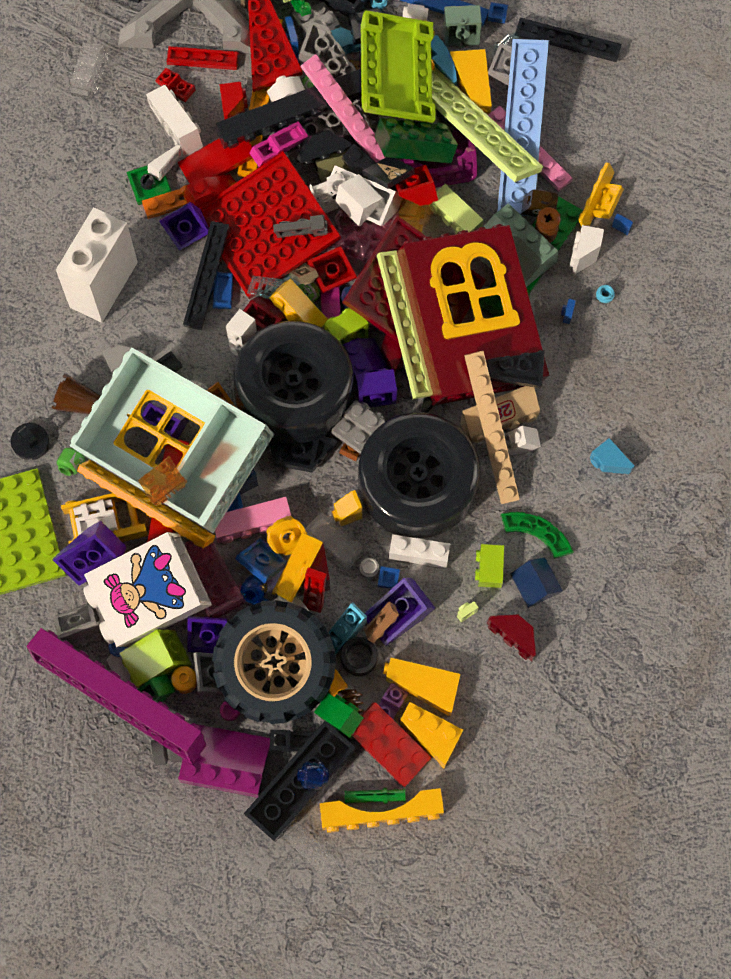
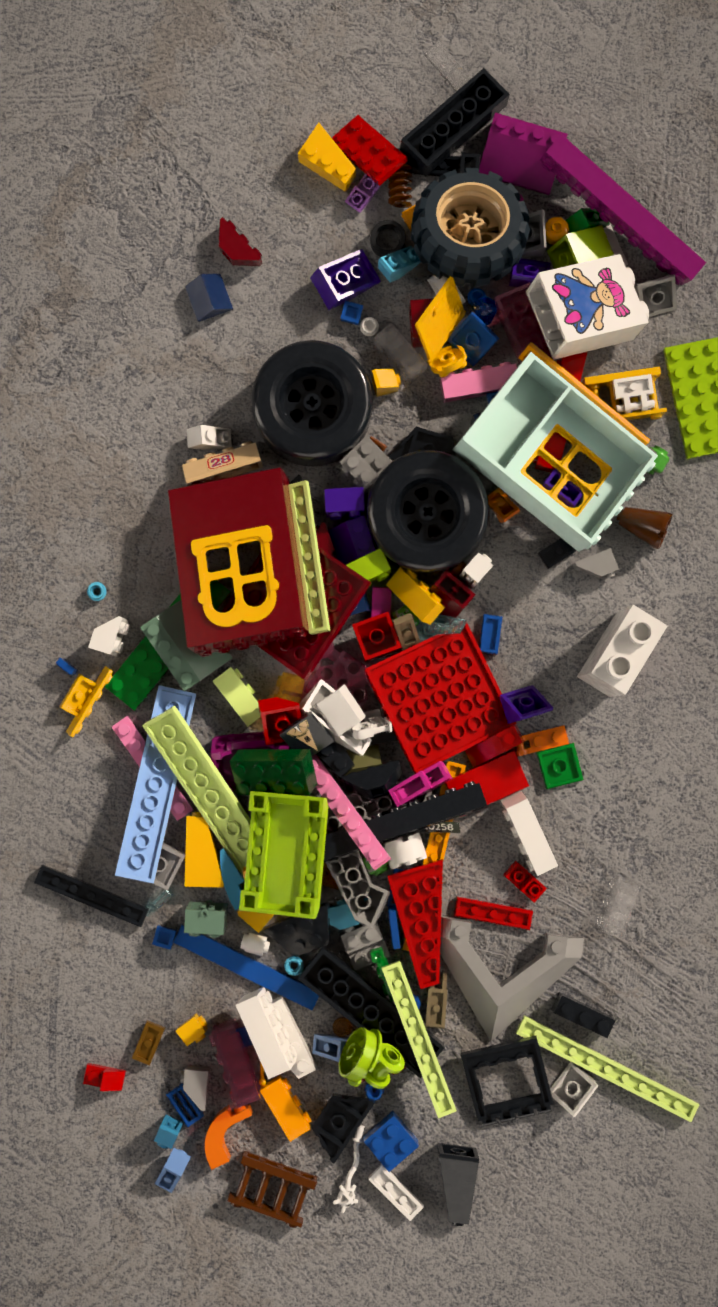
camera: 175 degrees left, 15 degrees up
(29, 441) = (694, 488): black tile -> none
(89, 551) = (637, 357): dark purple slope -> none
(150, 183) = (559, 760): black hinge -> none
(162, 481) = (568, 398): clear orange hinge -> none
(163, 163) = (547, 777): white slope -> none
(206, 275) = (506, 647): black plate -> none
(233, 99) = (465, 844): red slope -> none
(313, 775) = (443, 113): clear blue head -> none
(314, 589) = (425, 289): red tile -> none
(315, 225) = (389, 678): dark grey plate -> none
(338, 714) = (413, 171): green brick -> none
(339, 815) = (419, 93): yellow arch -> none
(381, 622) = (363, 264): medium nougat plate -> none
(384, 796) = (385, 109): green pin -> none
(419, 551) = (306, 329): white brick -> none
(425, 683) = (326, 206): yellow slope -> none
(466, 611) = (279, 272): yellowish green plate -> none
(490, 566) = (251, 314): lime brick -> none
(492, 427) = (233, 442): tan plate -> none
(518, 369) = (200, 493): black wing -> none
(538, 201) = (149, 686): dark brown torso -> none
(540, 528) = (198, 351): green tile -> none
(548, 223) = (139, 663): reddish brown piece -> none
(567, 311) = (138, 573): blue plate -> none
(611, 459) = (119, 411): dark azure slope -> none

